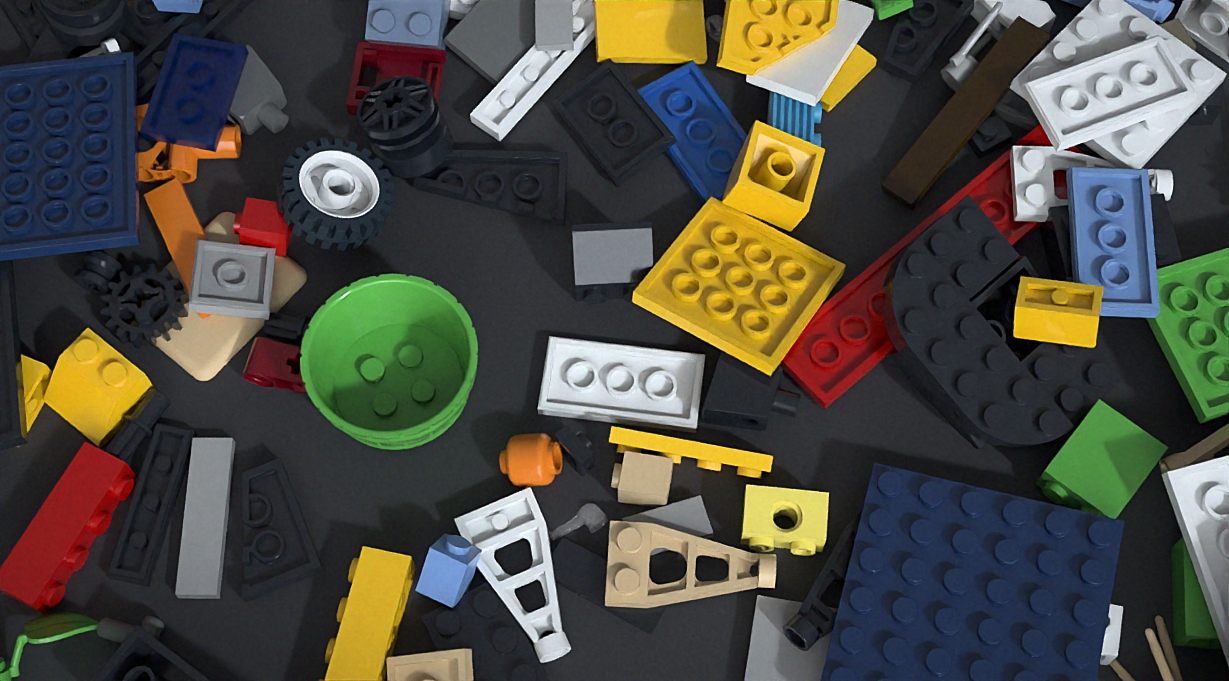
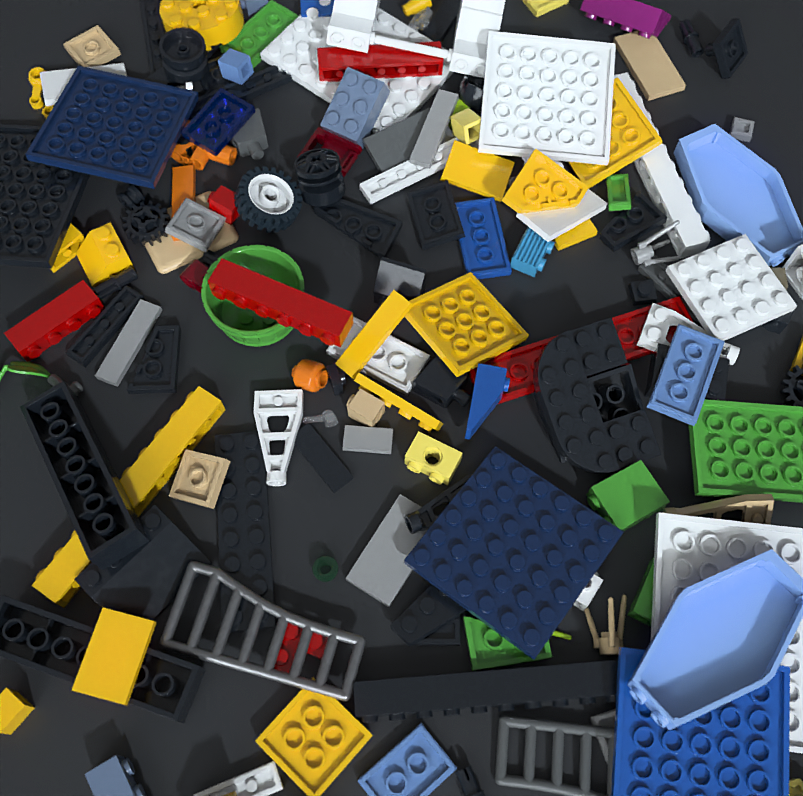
camera: 20 degrees right, 0 degrees up
(448, 362) = (281, 303): none -> red brick
(448, 569) = (238, 415): medium blue brick -> none
(609, 355) = (374, 334): none -> yellow tile
(629, 560) = (337, 448): tan plate -> none
(774, 176) = (509, 272): yellow slope -> none
(823, 376) = (487, 393): none -> blue slope
(964, 112) = (633, 275): dark brown tile -> none
(1057, 311) = (635, 400): yellow panel -> none
(1108, 92) = (720, 291): white tile -> none

